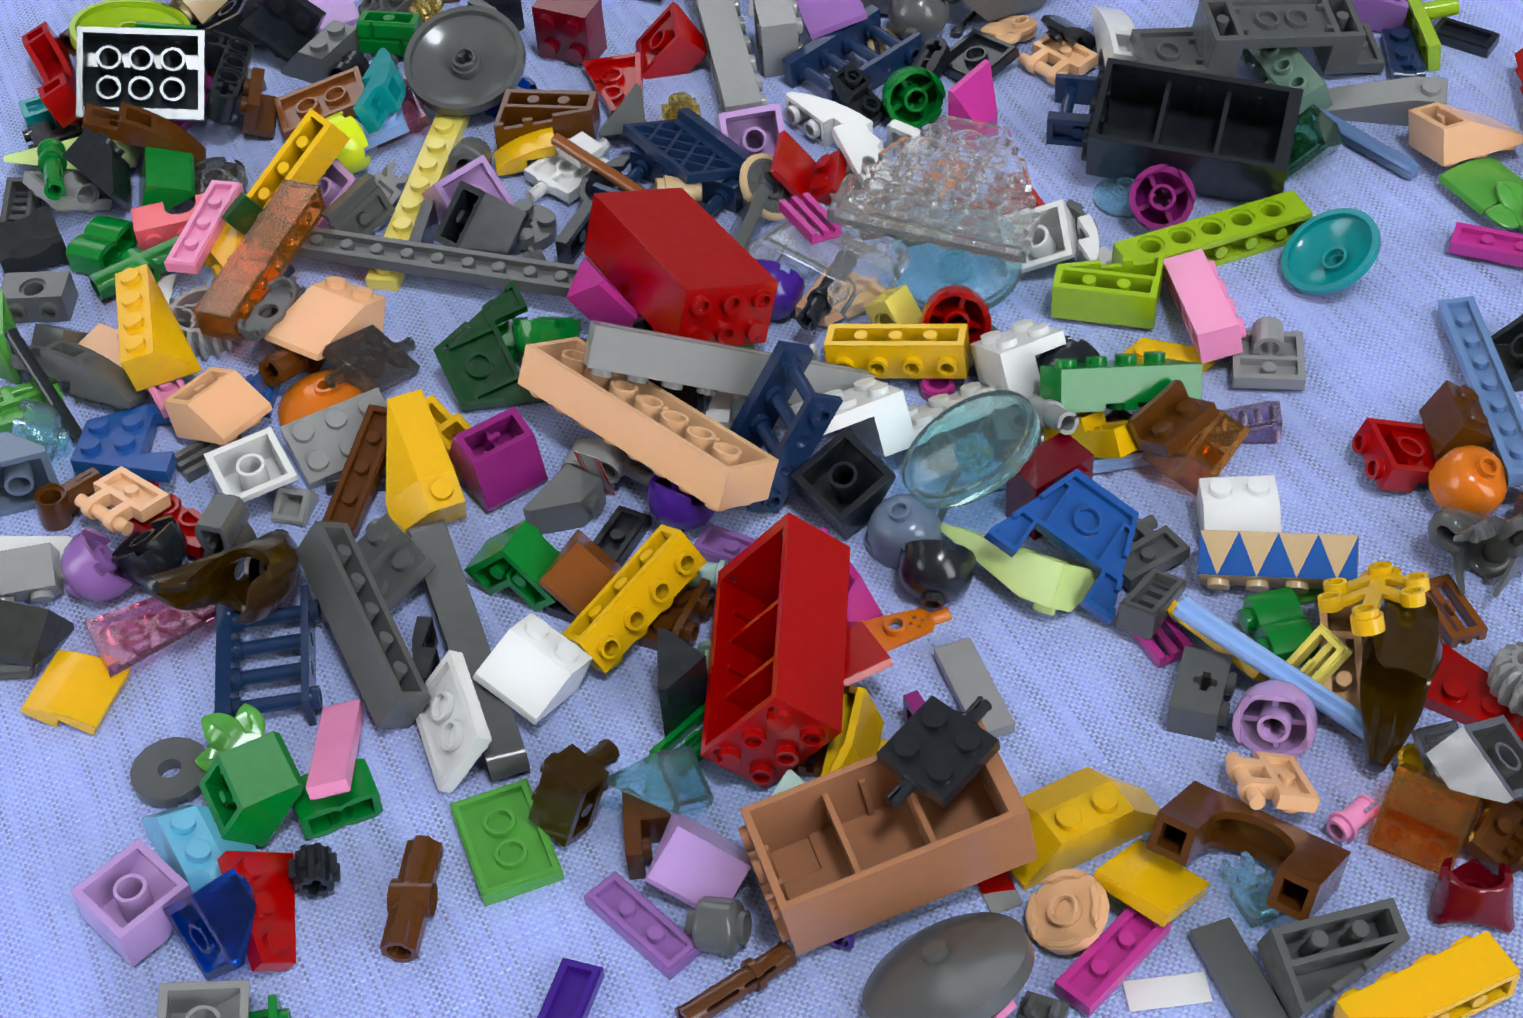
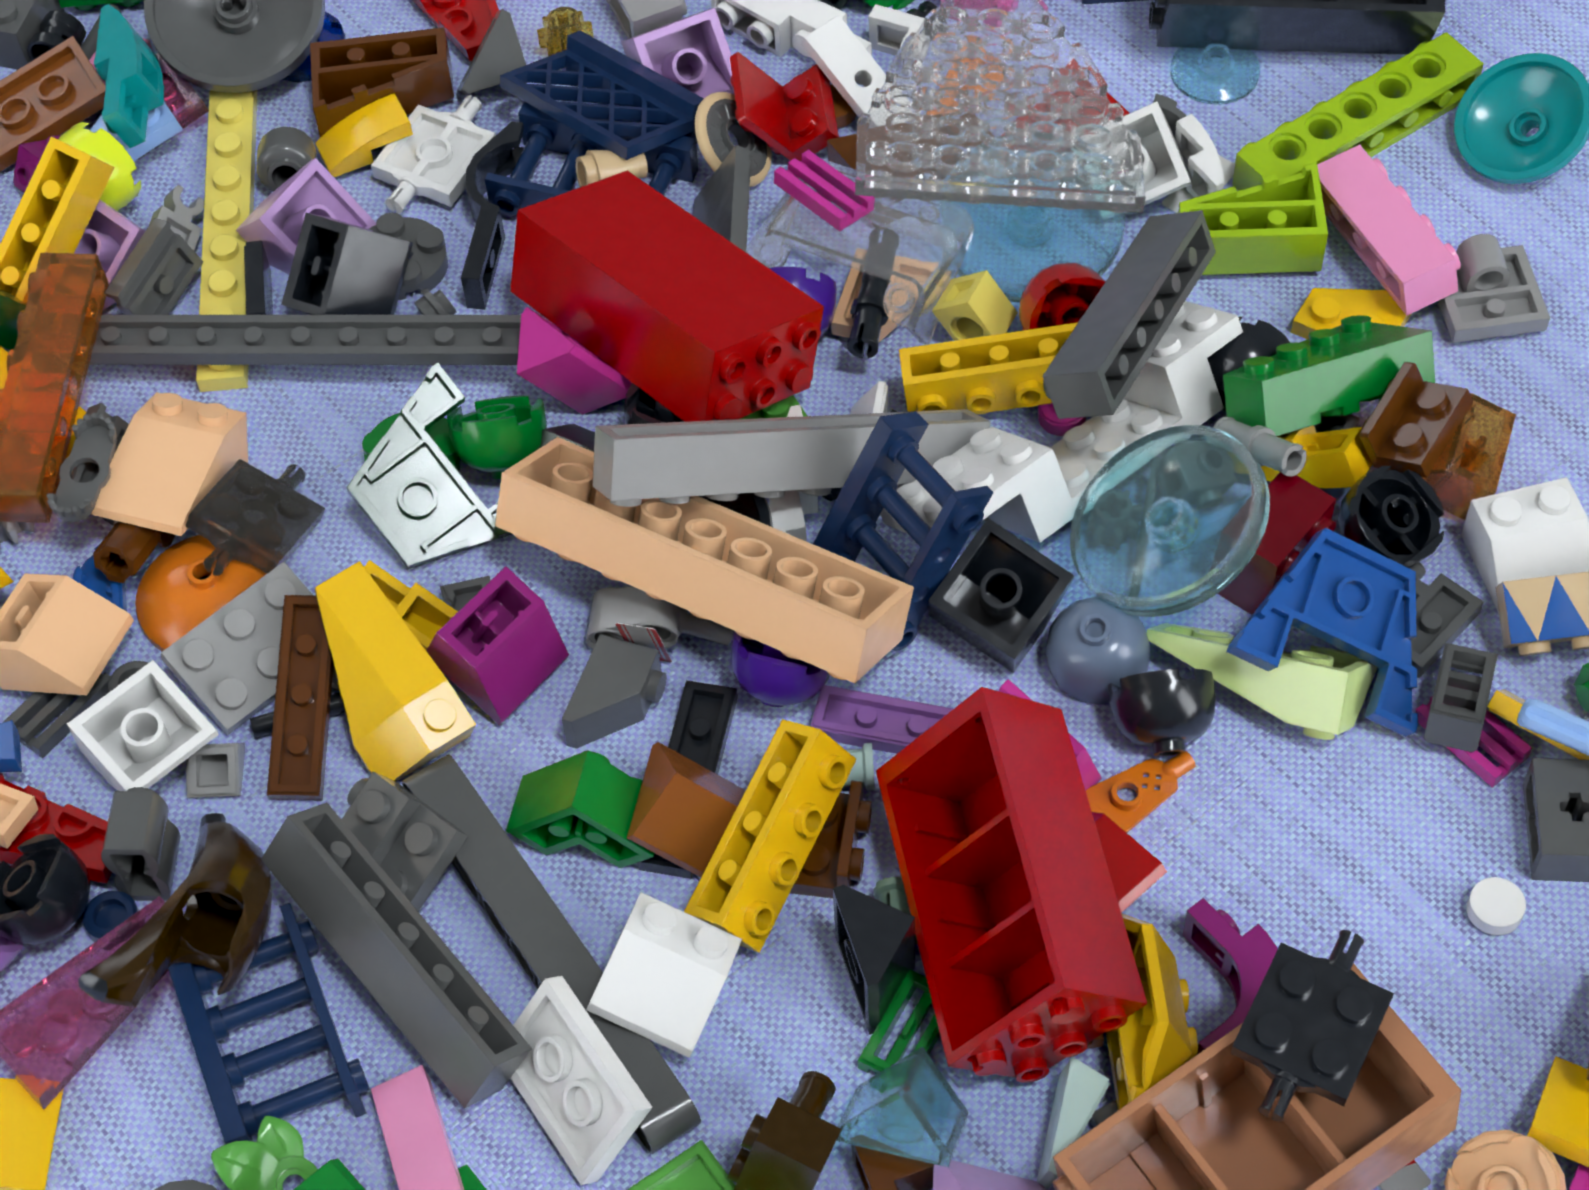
camera: 15 degrees left, 10 degrees up
(424, 646) = (499, 984): black slope -> none
(586, 143) = (448, 123): white tile -> none
(594, 163) = (490, 150): dark orange bar -> none
(969, 679) = (1264, 872): light grey tile -> none
(987, 319) = (1129, 316): none -> dark grey brick
(1082, 820) = (1485, 1031): yellow wedge -> none
(1132, 740) = (1496, 906): none -> white tile
(1140, 478) = (1393, 515): none -> black cylinder
(1161, 197) = (1278, 73): magenta cylinder -> none
(1262, 419) = (1515, 380): clear purple slope -> none

